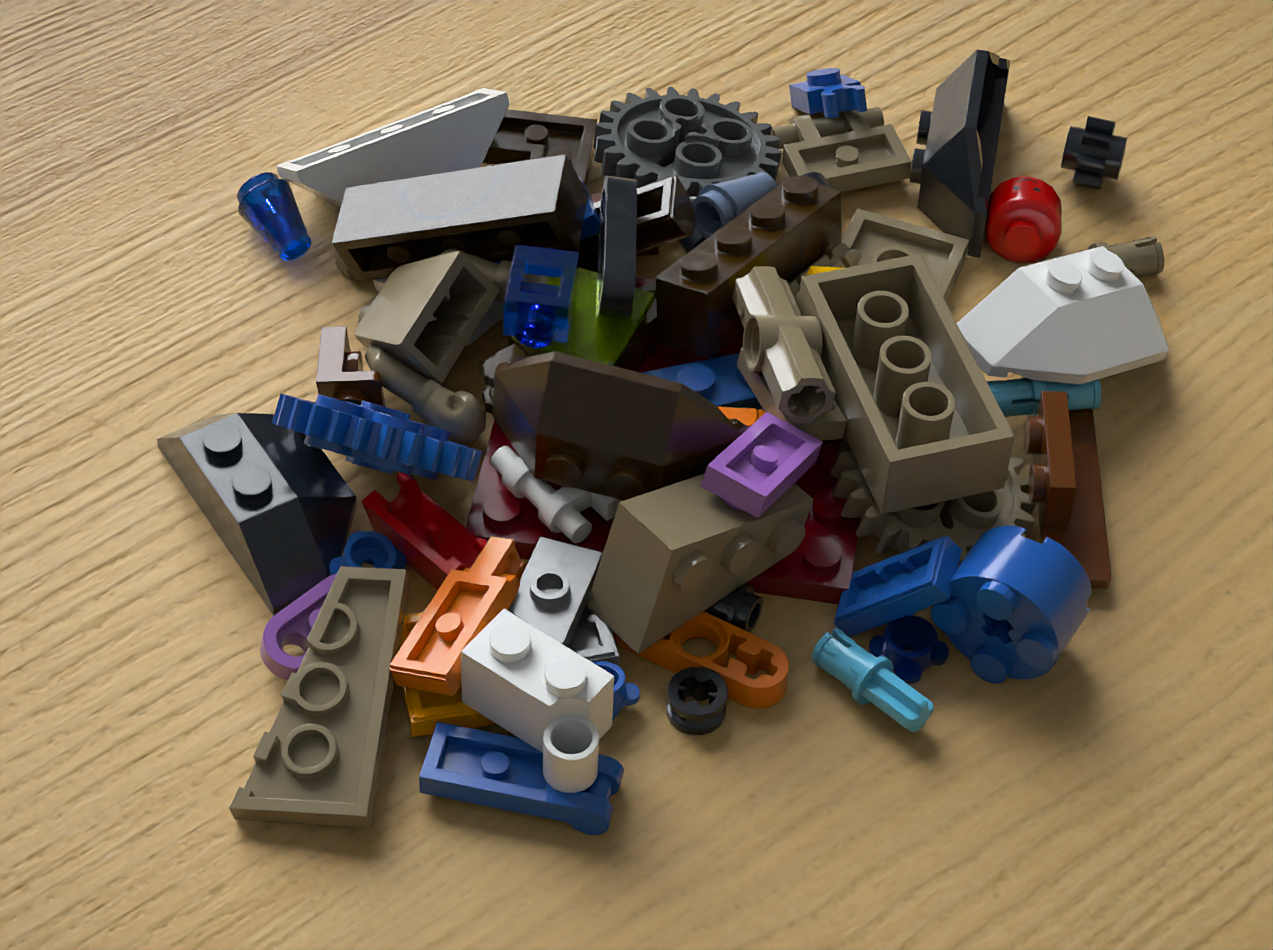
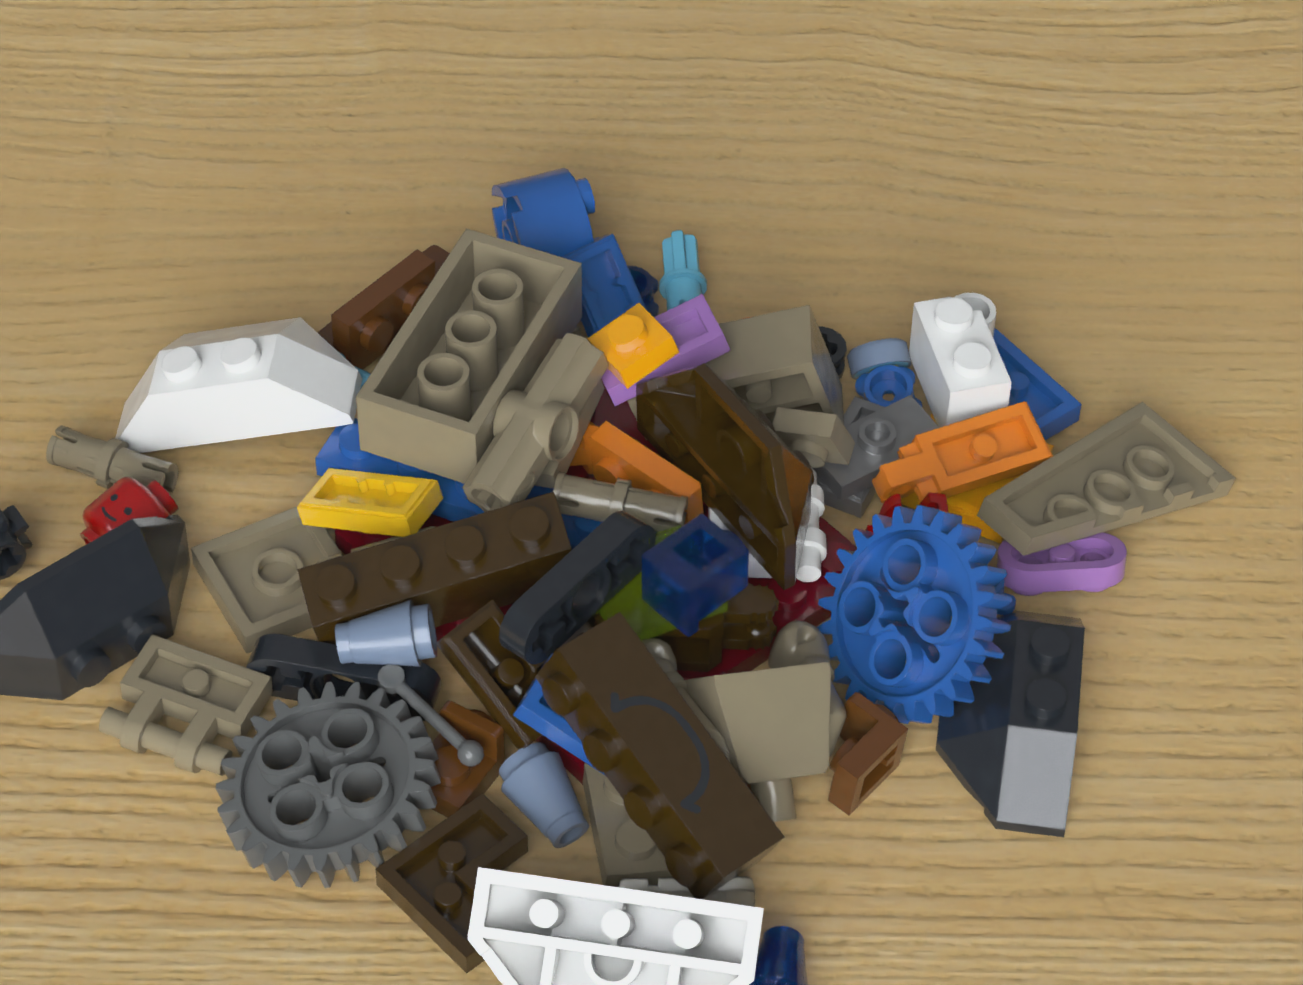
camera: 140 degrees left, 0 degrees up
(583, 520) = (814, 434): none -> dark tan plate
(637, 710) = (878, 353): none -> sand blue tile
(690, 359) = (600, 499): none -> dark tan pin
(775, 430) = (634, 345): none -> light orange plate
(828, 93) = (130, 759): blue plate -> none

